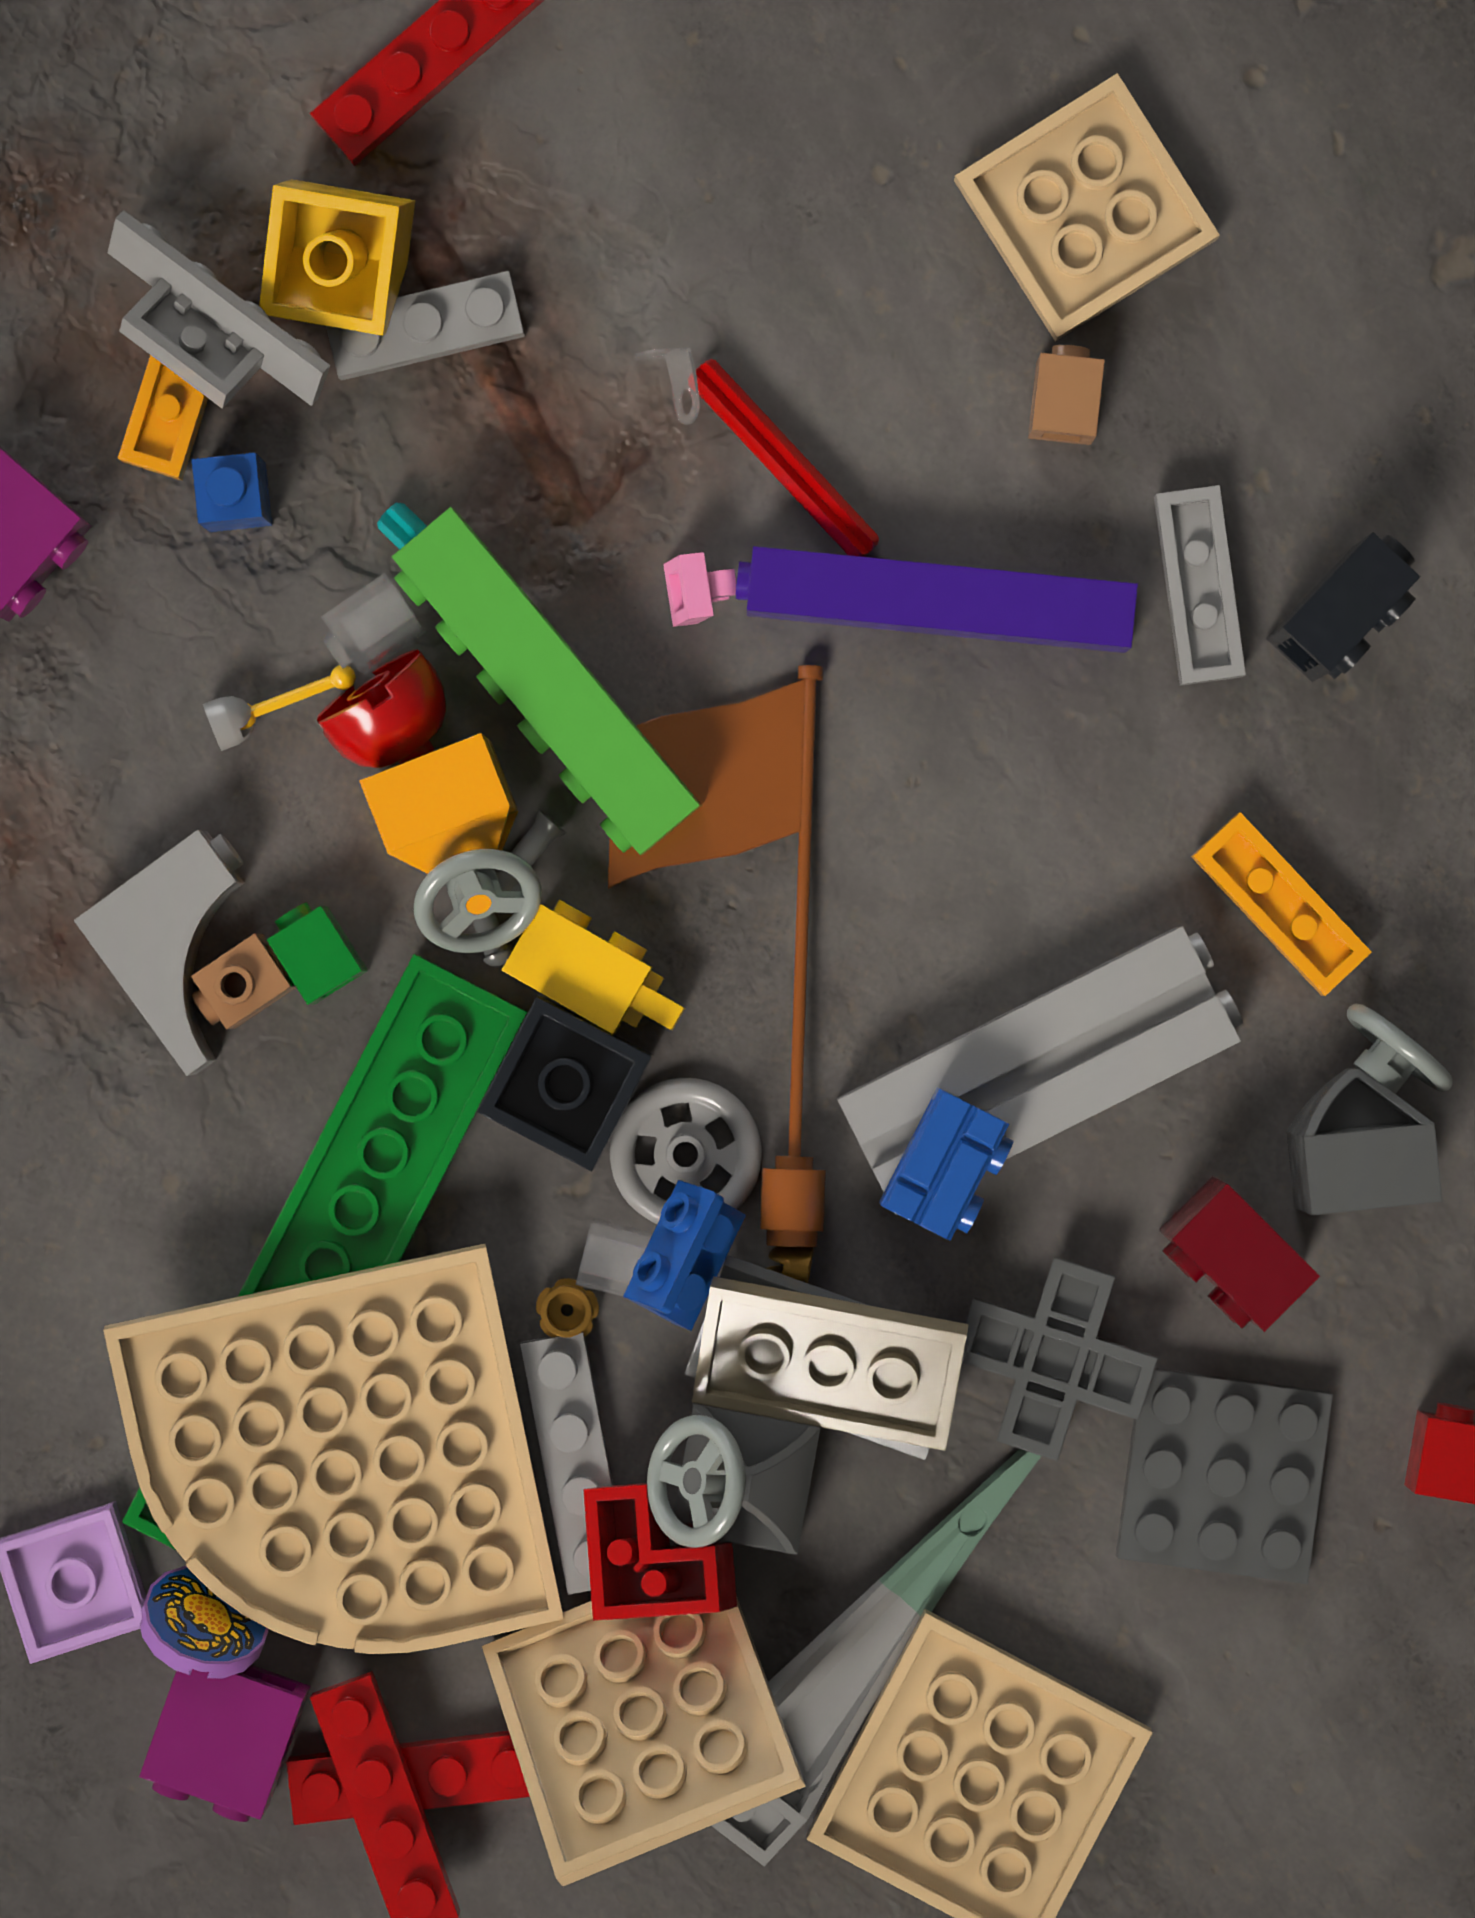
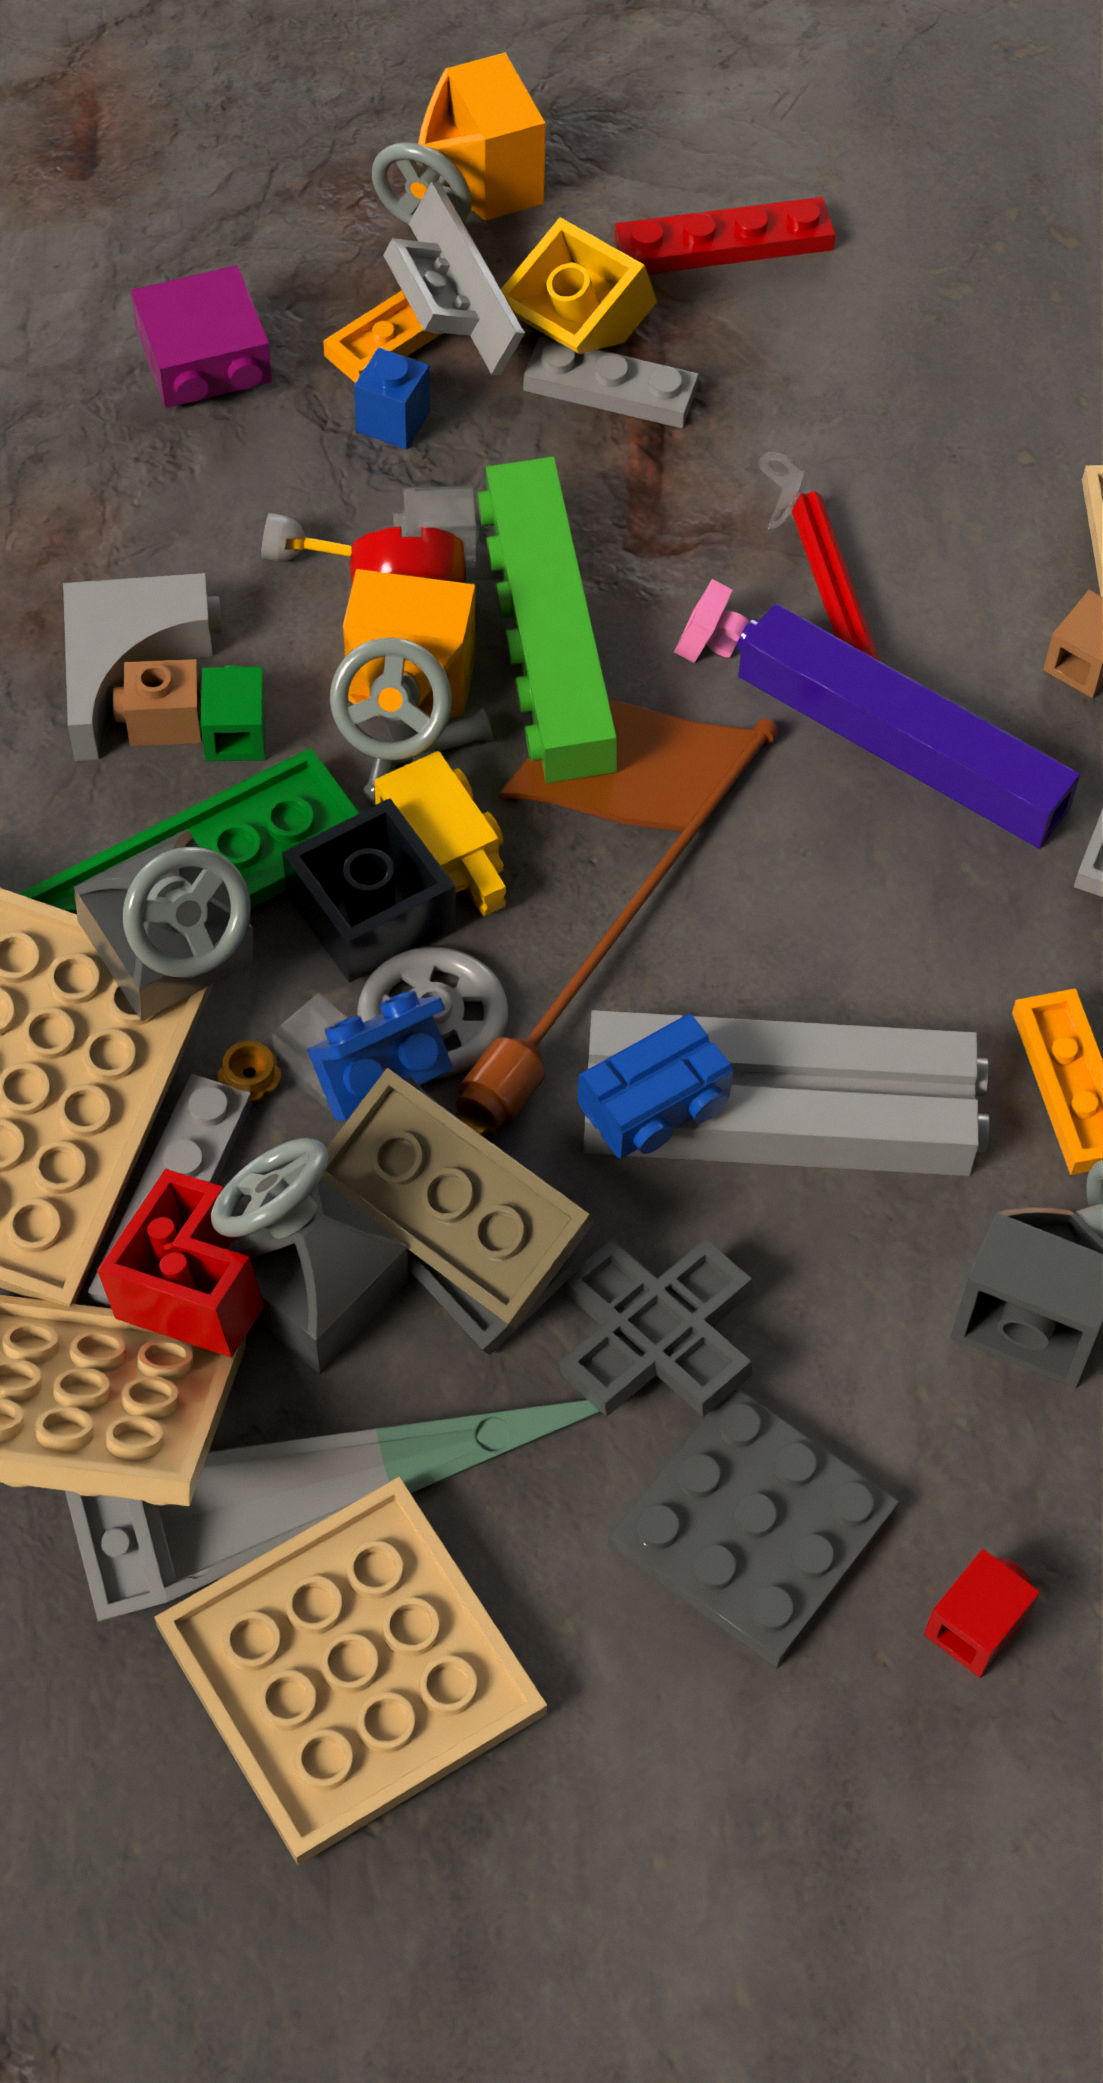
camera: 30 degrees right, 30 degrees down
(112, 113) = (477, 141): none -> light orange piece
(436, 1269) = (168, 922): none -> piece
(1238, 1253) = (876, 1312): dark red brick -> none

